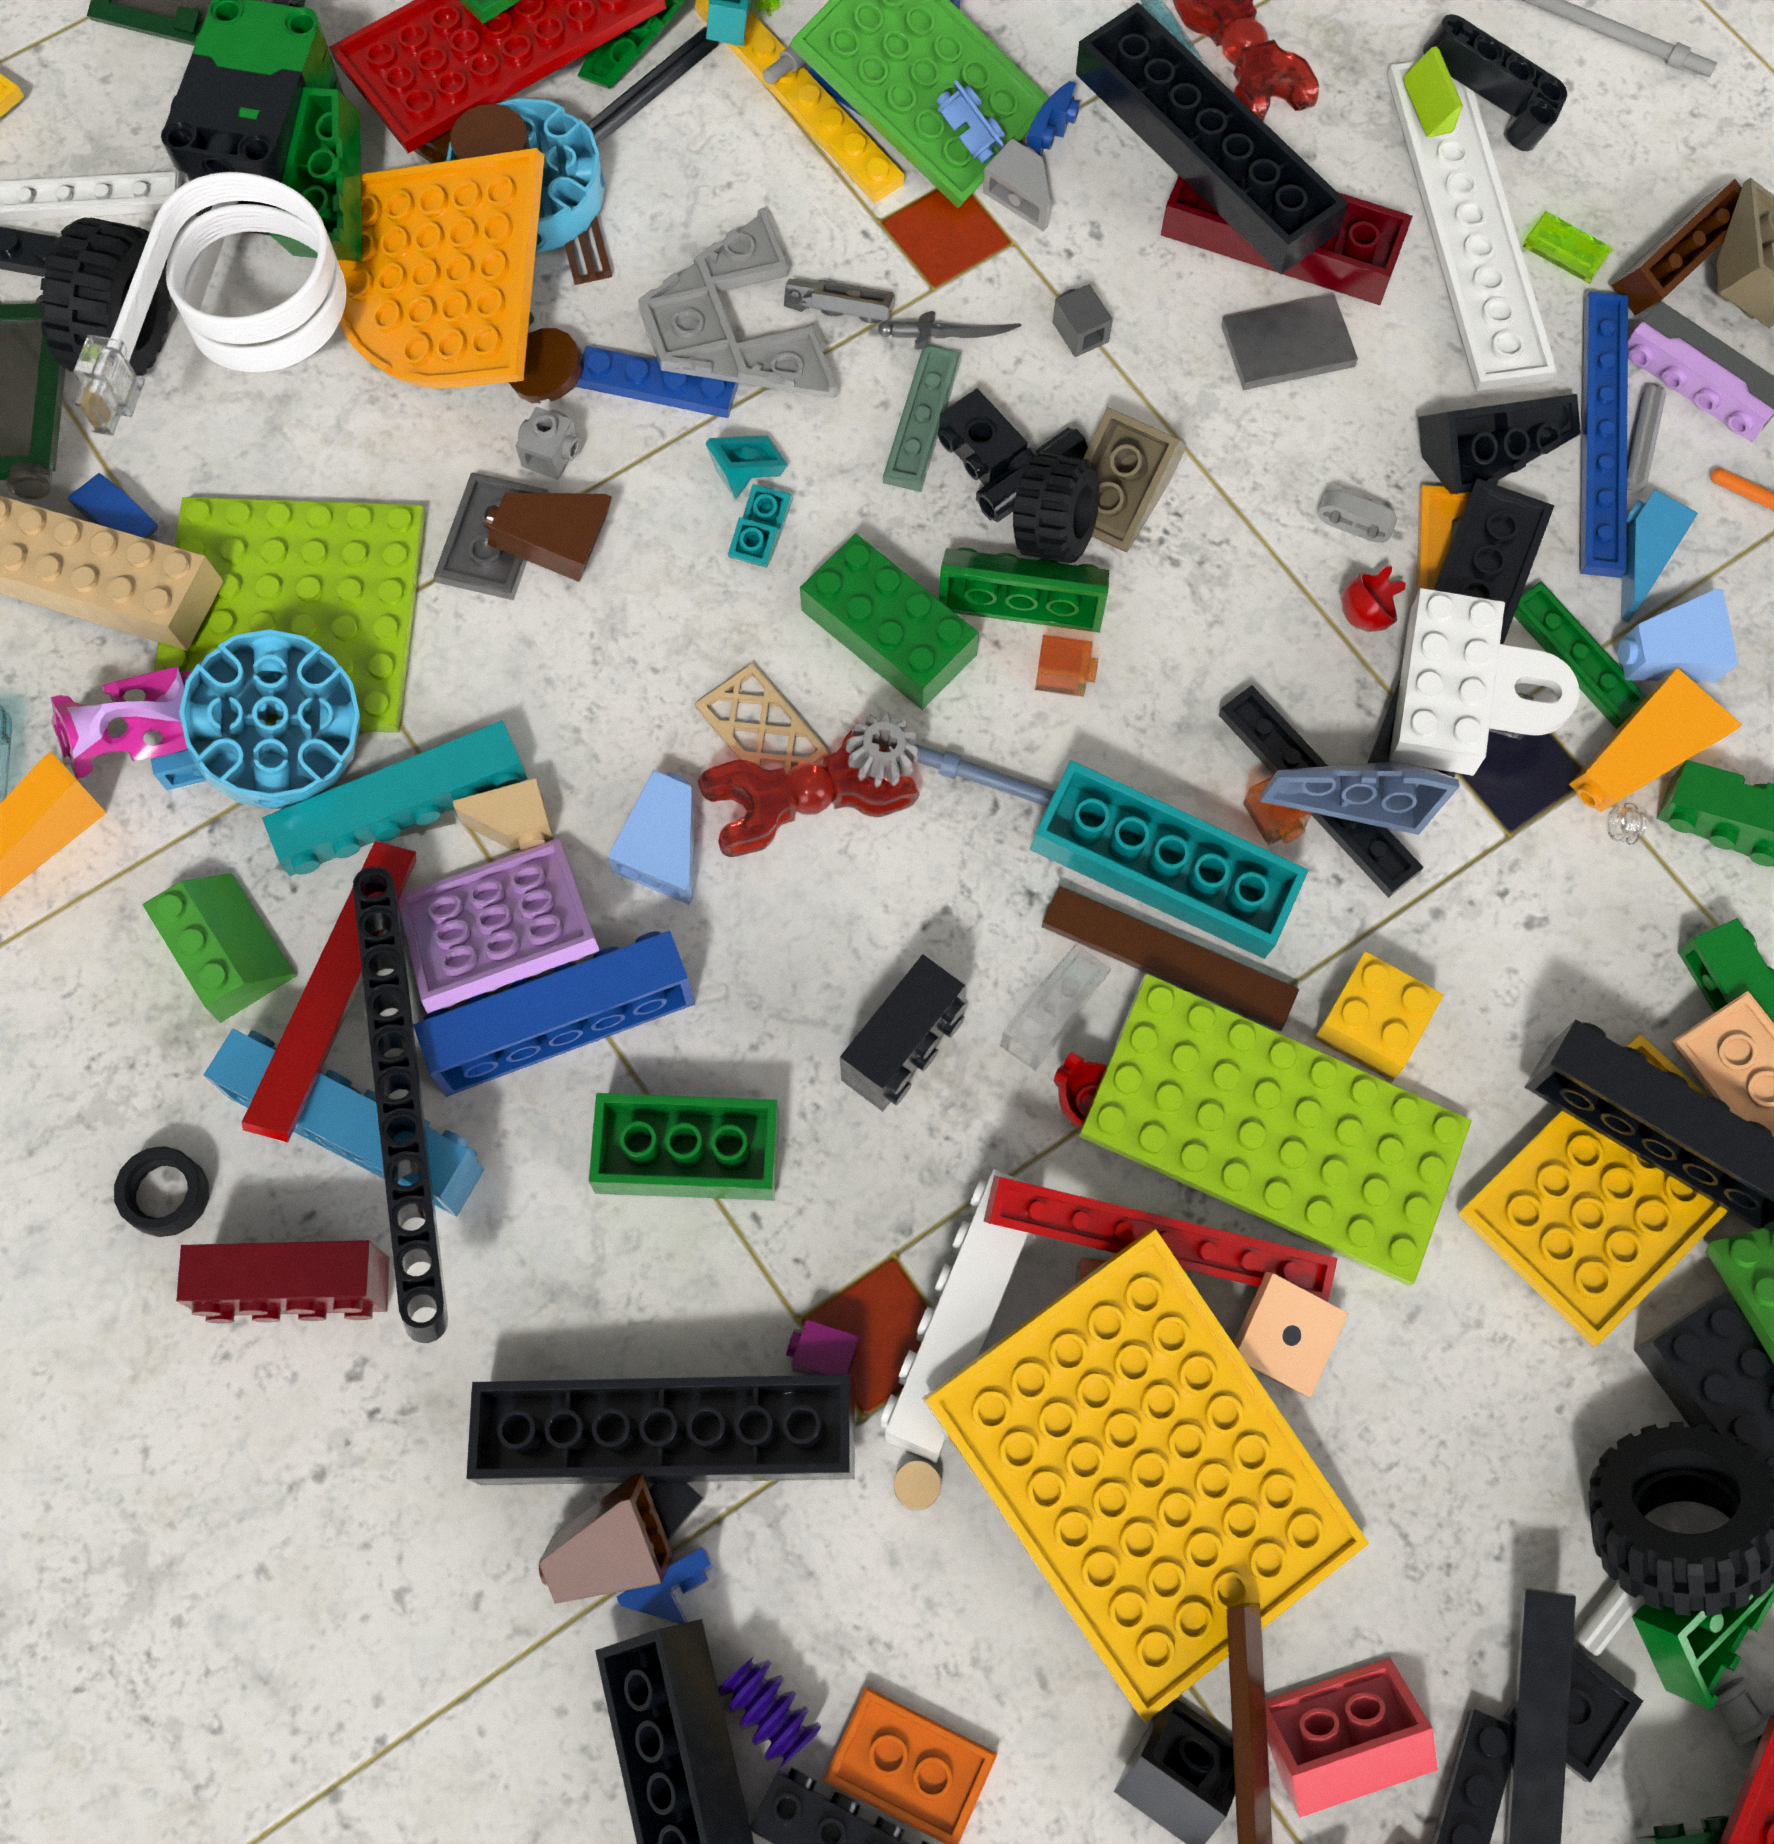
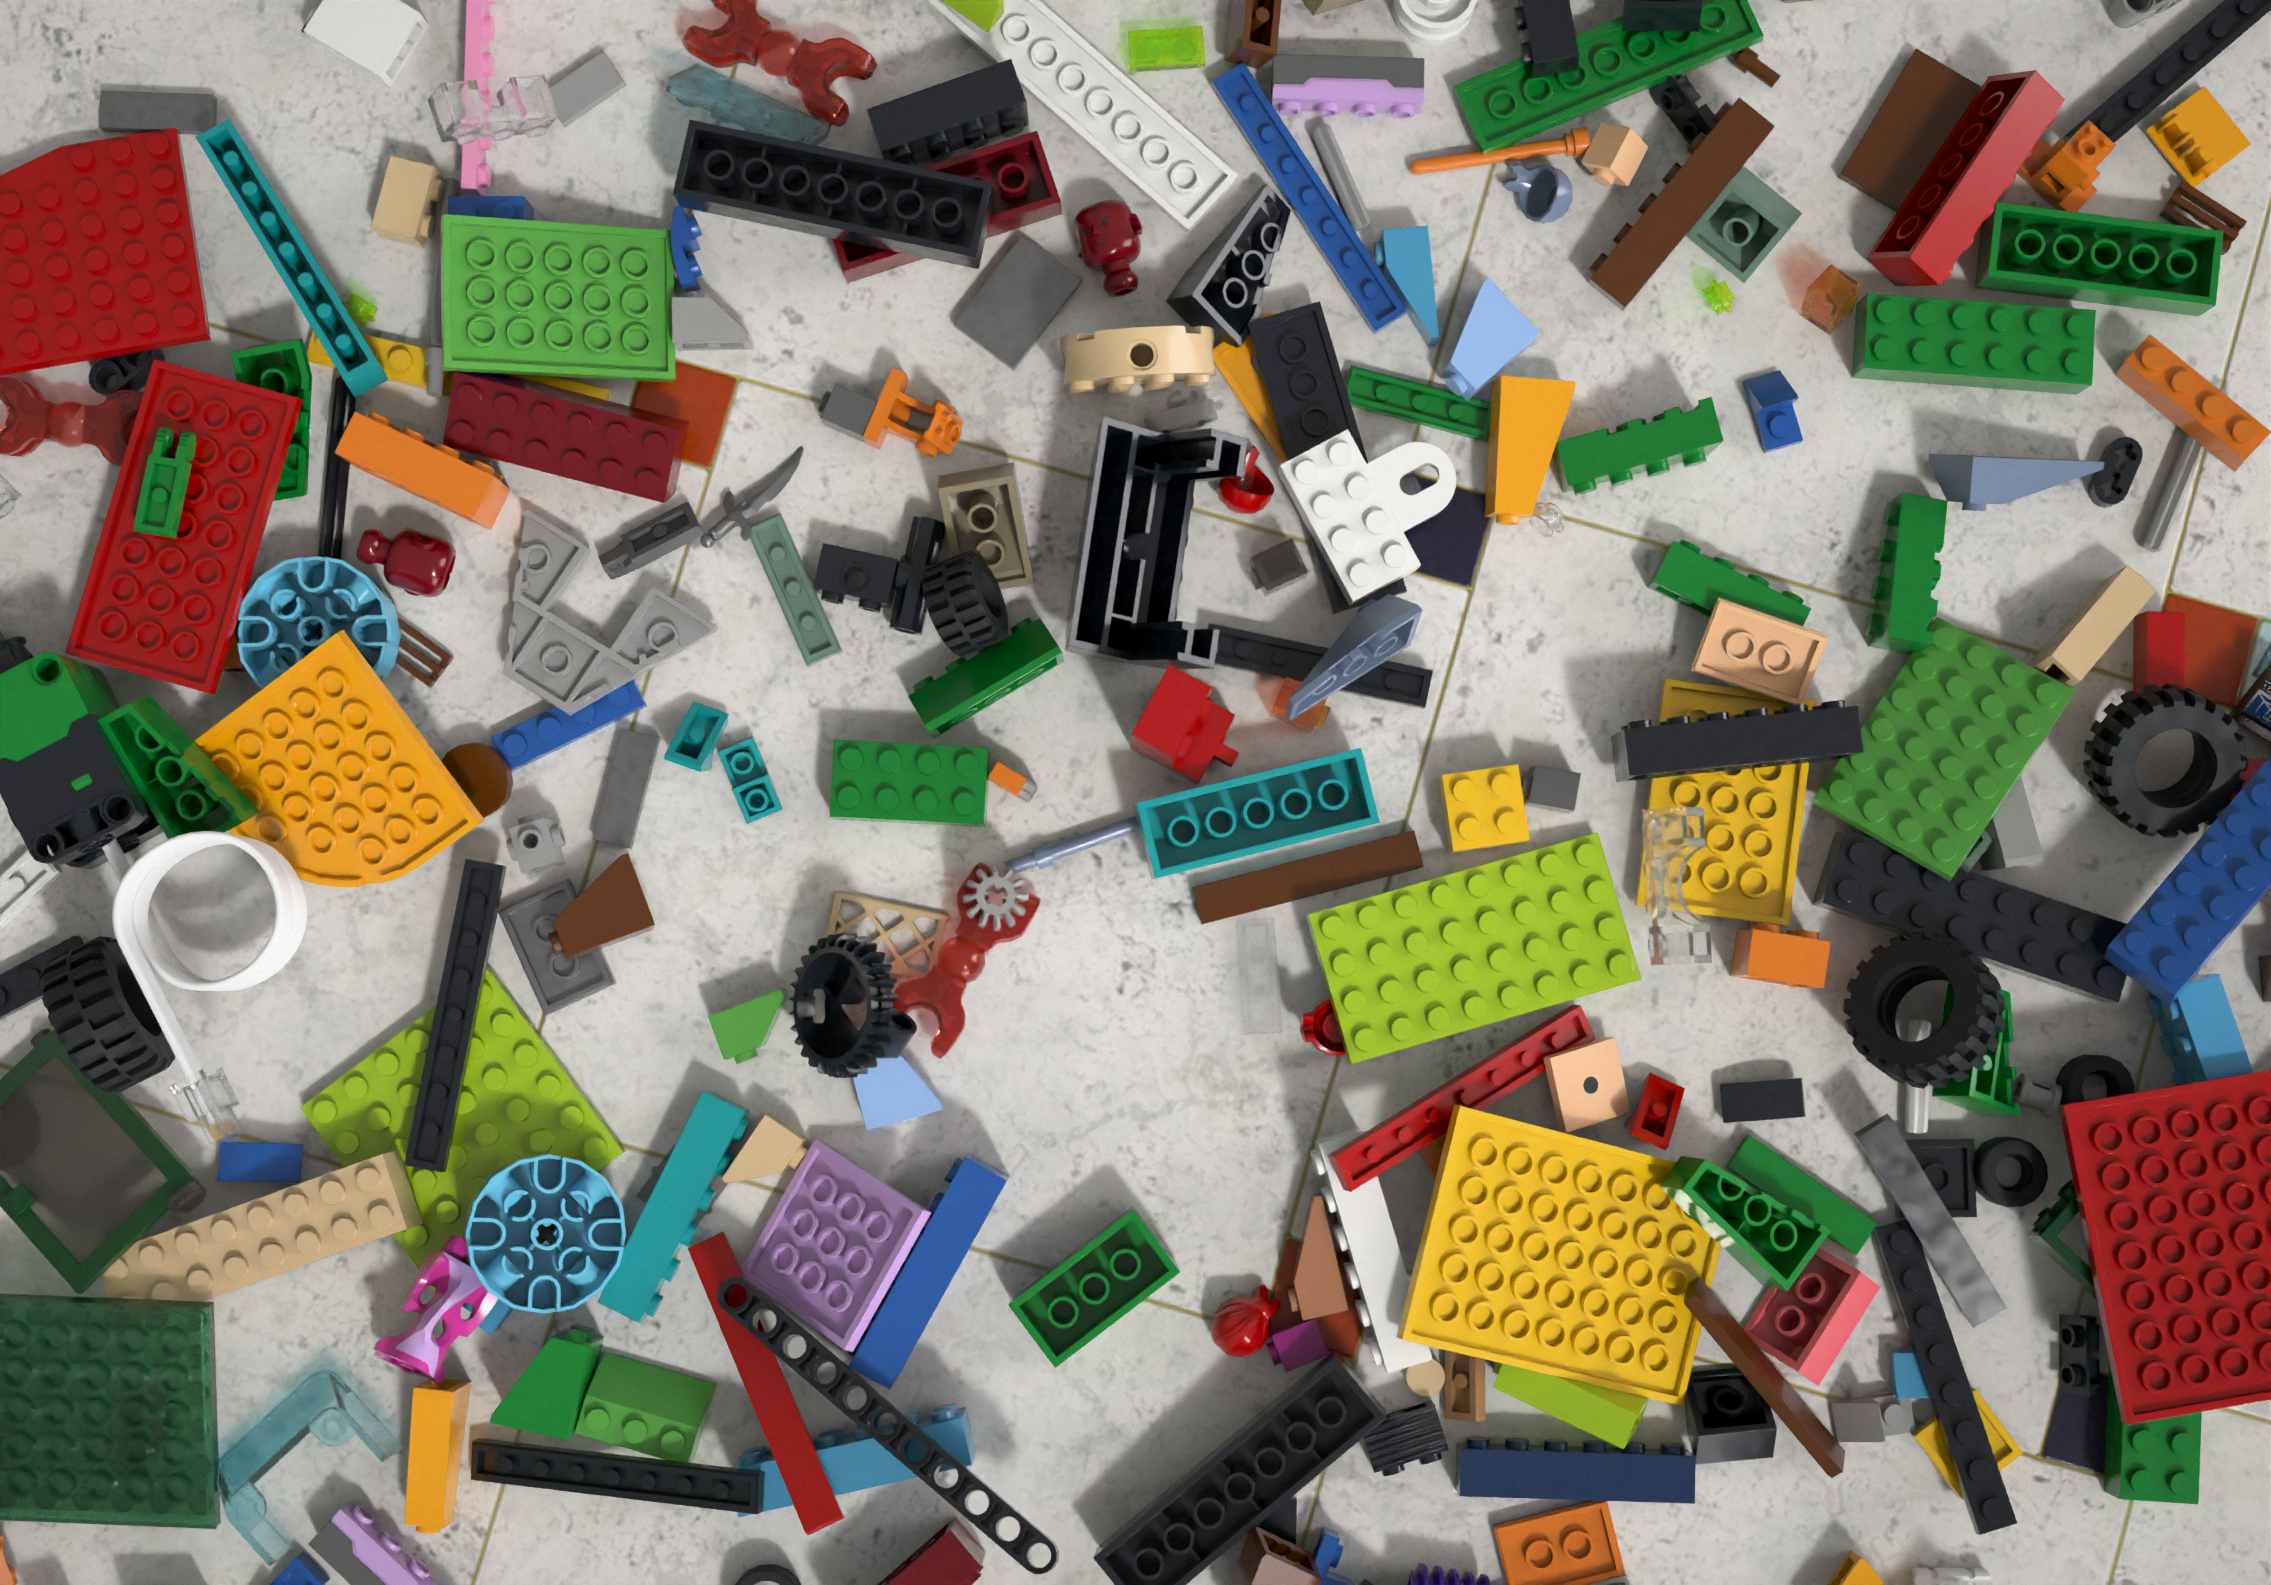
camera: 40 degrees left, 15 degrees up
(145, 970) = (618, 1476): none -> black tile
(163, 847) = (553, 1386): none -> green slope
(362, 513) = (455, 1016): none -> black plate
(488, 131) = (272, 635): reddish brown tile -> none
(588, 704) = (747, 1025): none -> bright green slope
(643, 179) = (410, 560): none -> dark red piece
(654, 461) = (626, 788): none -> flat silver tile
(706, 719) = (848, 972): none -> black piece
(712, 120) = (422, 470): none -> orange brick
(790, 1293) = (1243, 1323): none -> red piece
(844, 172) = (566, 434): none -> dark red brick
(849, 1524) = (1406, 1437): none -> black brick
(896, 1299) = (1316, 1273): none -> nougat slope
(904, 1034) = (1178, 1090): black brick -> none
(950, 1519) = (1464, 1387): none -> medium nougat plate
(962, 109) = (617, 305): medium blue hinge -> none
(975, 685) = (1013, 782): none -> orange piece
(989, 1700) = (1575, 1471): none -> dark blue brick
(1049, 1630) = (1589, 1407): none -> lime slope
(1065, 666) = (1065, 714): clear orange brick -> none
(1121, 344) = (895, 410): none -> orange tile
(1159, 723) = (1183, 727): none -> red hinge
(1246, 564) = (1137, 543): none -> black wedge
(1336, 1412) = (1655, 1111): none -> red slope
(1347, 686) = (1276, 568): none -> clear smoke brick
(1348, 1584) = (1748, 1223): none -> green wedge
(1357, 156) = (951, 116): none -> black brick
(1363, 422) = (1138, 357): none -> tan brick
(1405, 345) = (1109, 243): none -> dark red piece
(1422, 1617) = (1801, 1192): none -> green tile
(1450, 1490) = (1762, 1100): none -> black slope
(1456, 1047) = (1550, 788): none -> dark grey brick
(1540, 1169) = (1669, 843): none -> clear arch
(1571, 1362) = (1780, 958): none -> orange brick
(1688, 1759) = (2033, 1169): none -> black tyre

